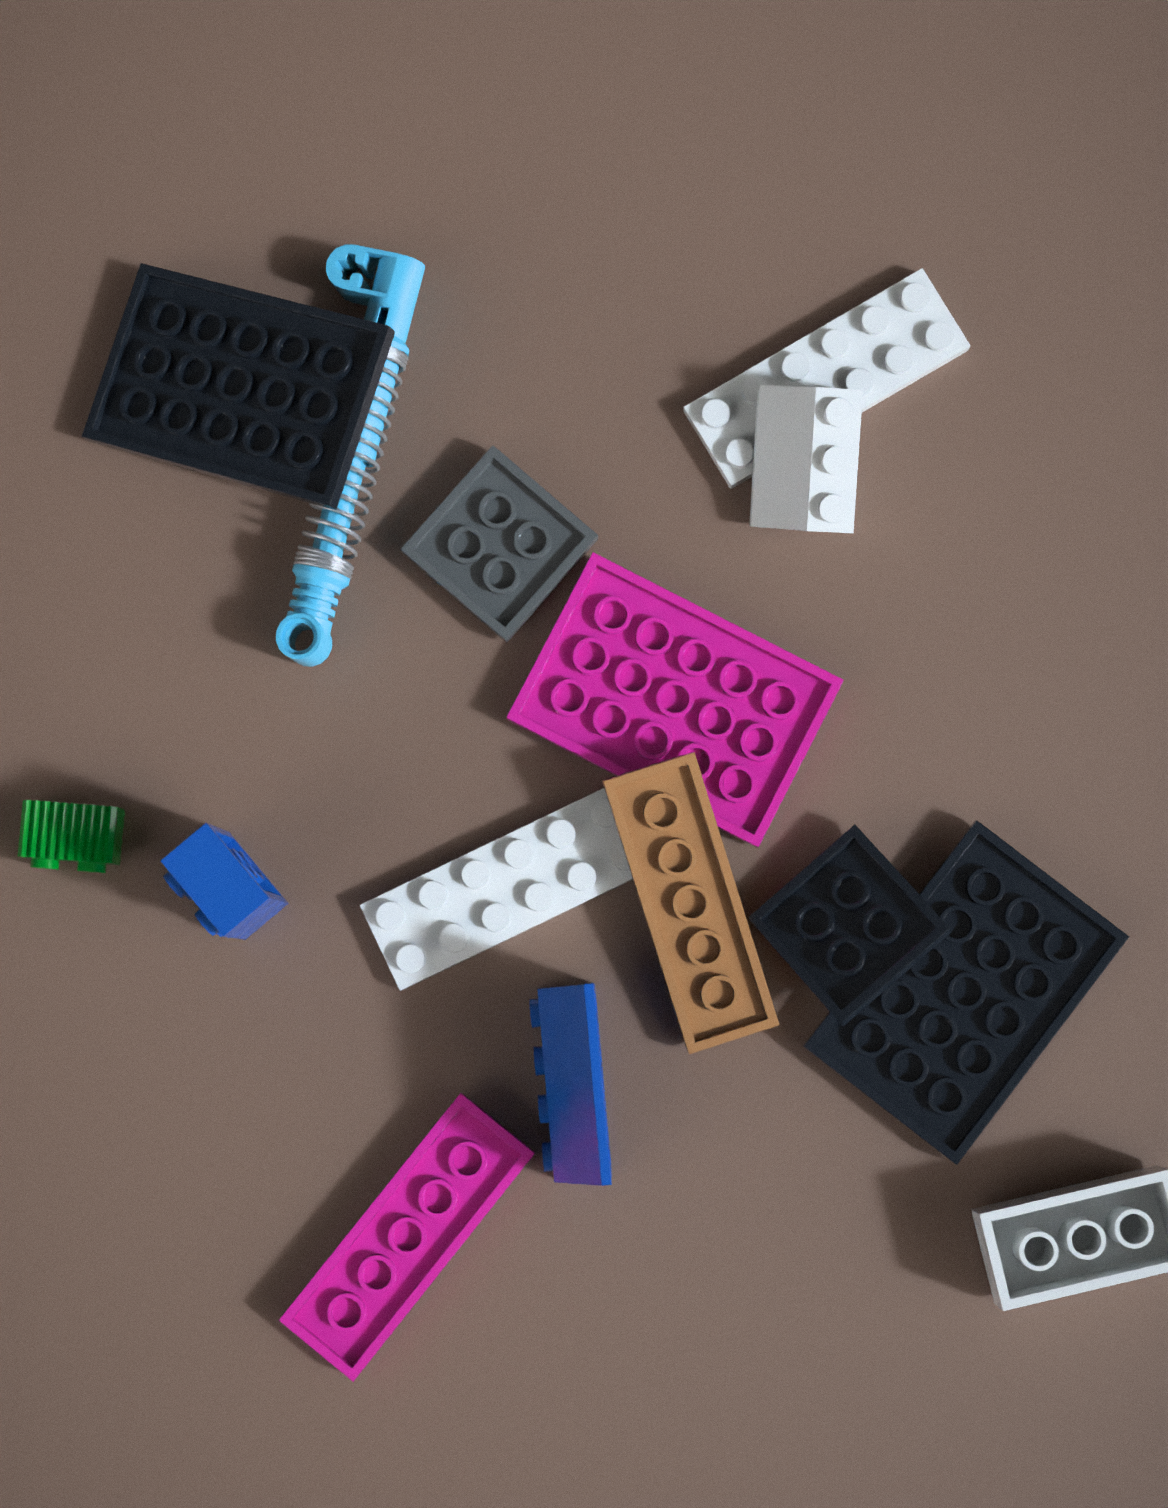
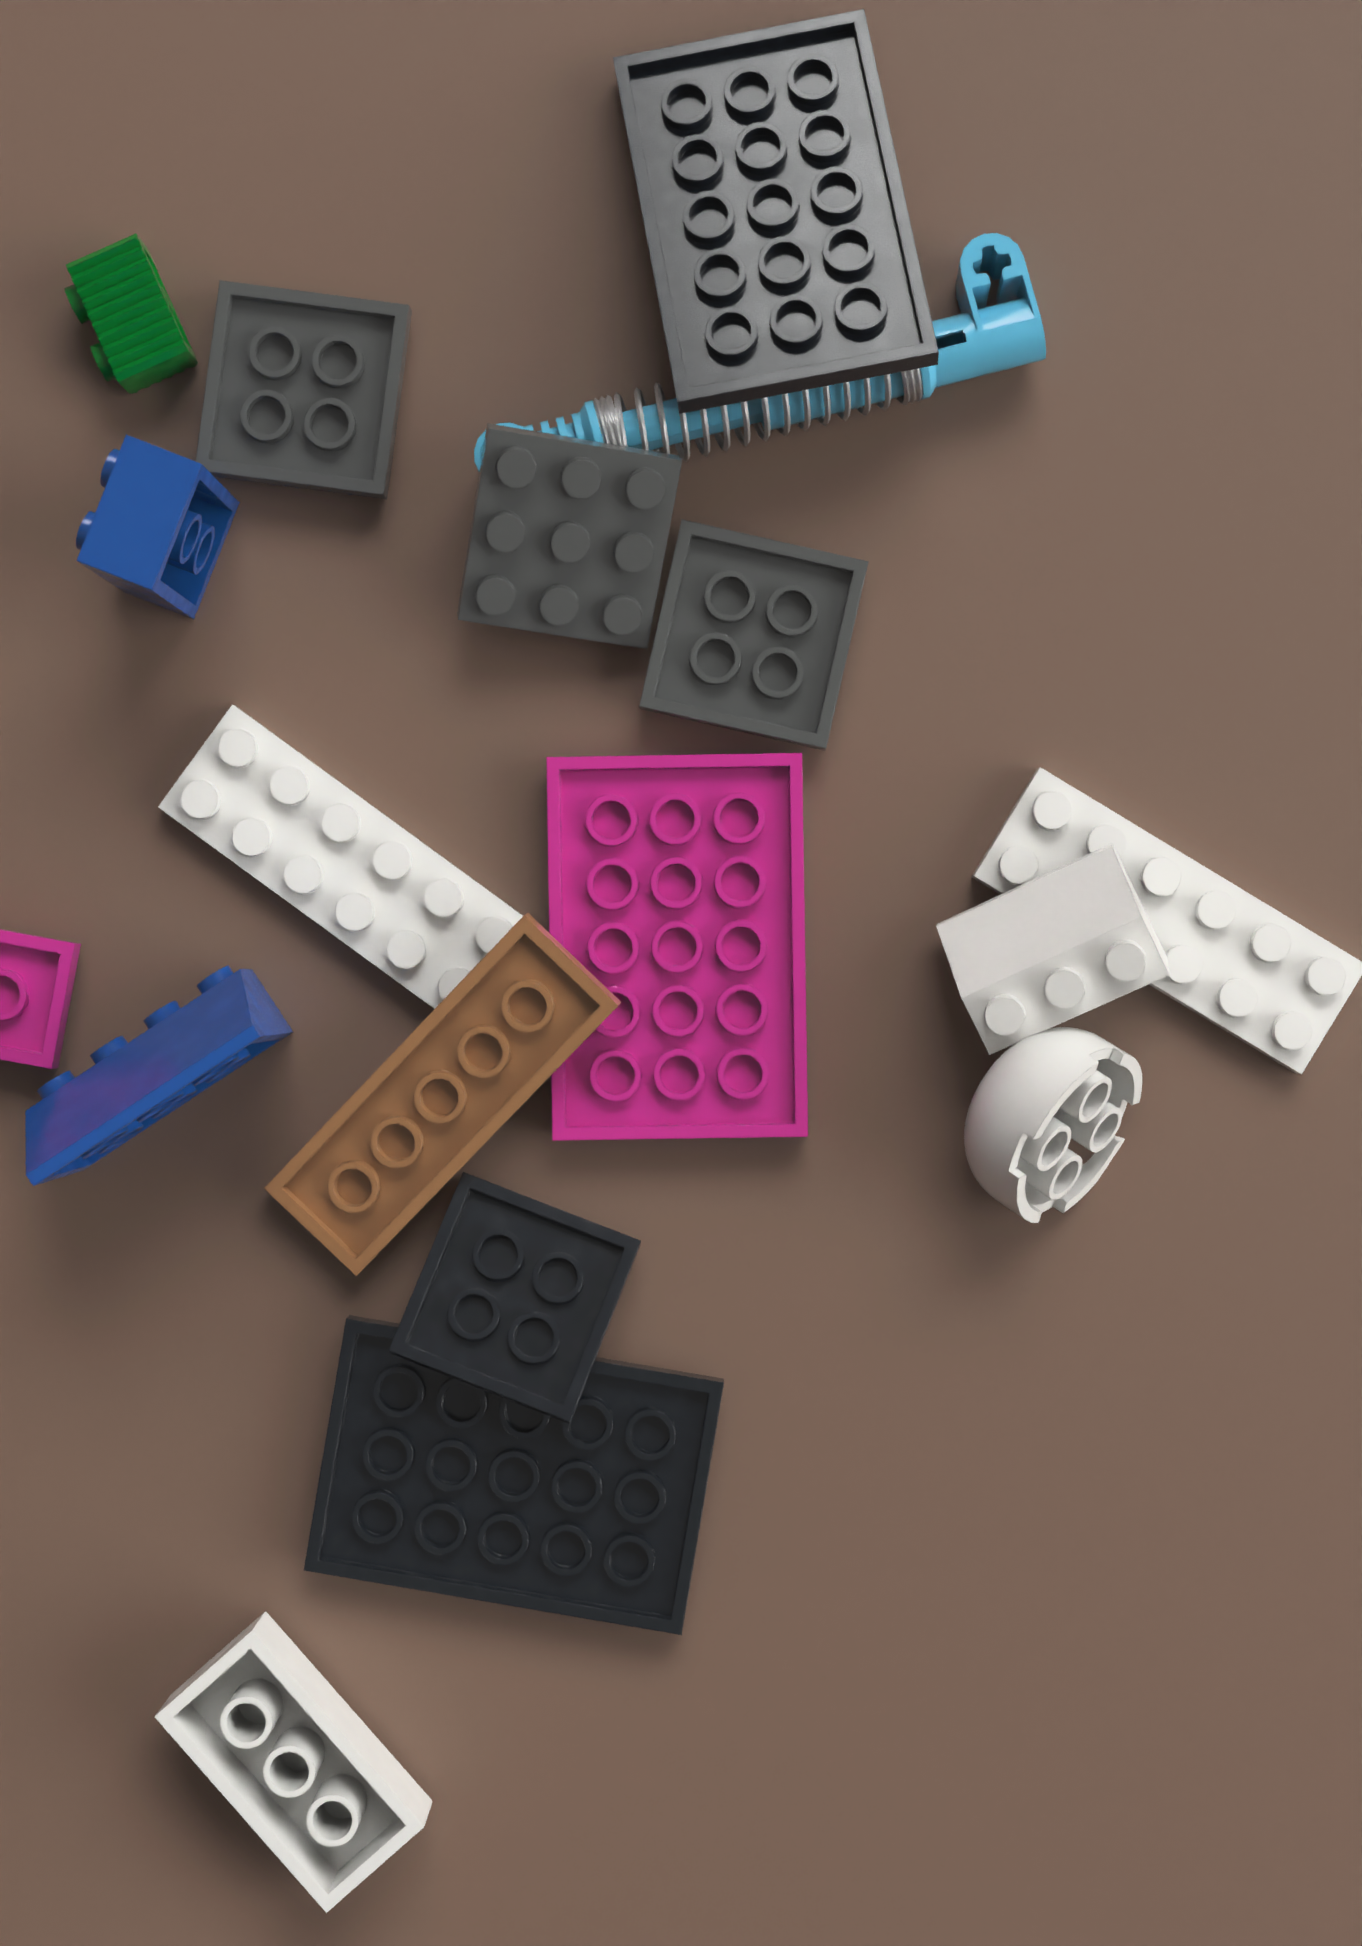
camera: 50 degrees right, 5 degrees up
(181, 747) = (303, 389): none -> dark grey plate
(373, 625) = (568, 536): none -> dark grey plate
(901, 521) = (1032, 1106): none -> white cylinder

